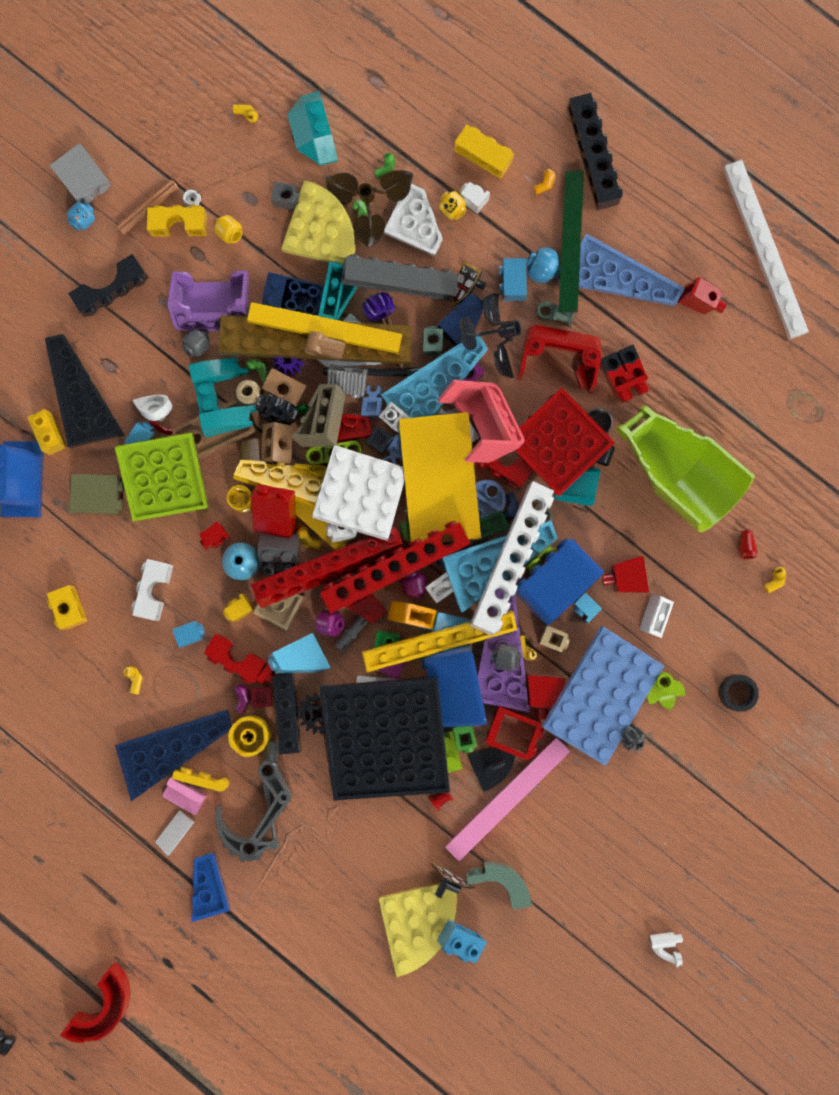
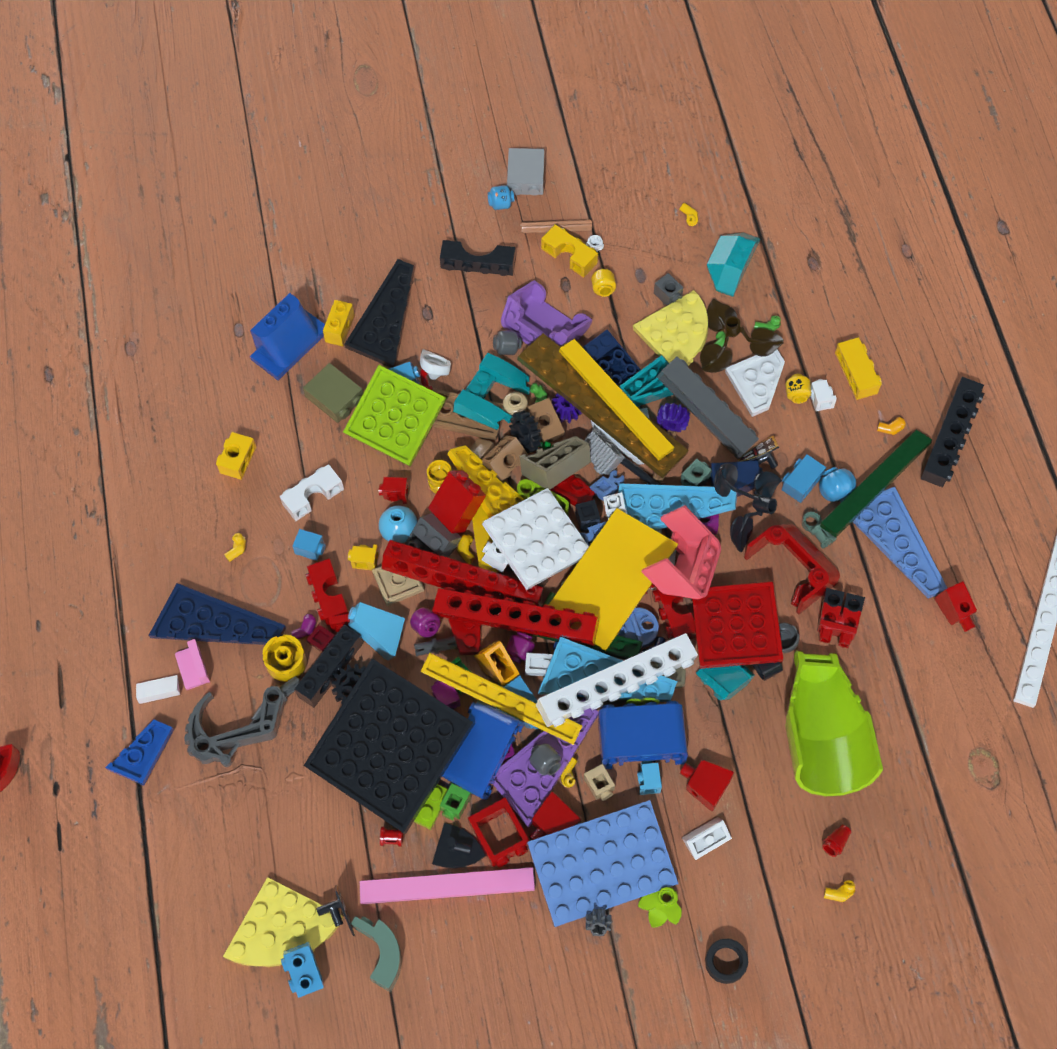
camera: 40 degrees right, 20 degrees down
(202, 779) = (217, 663): yellow plate -> none
(319, 345) = (600, 406): medium nougat piece -> none

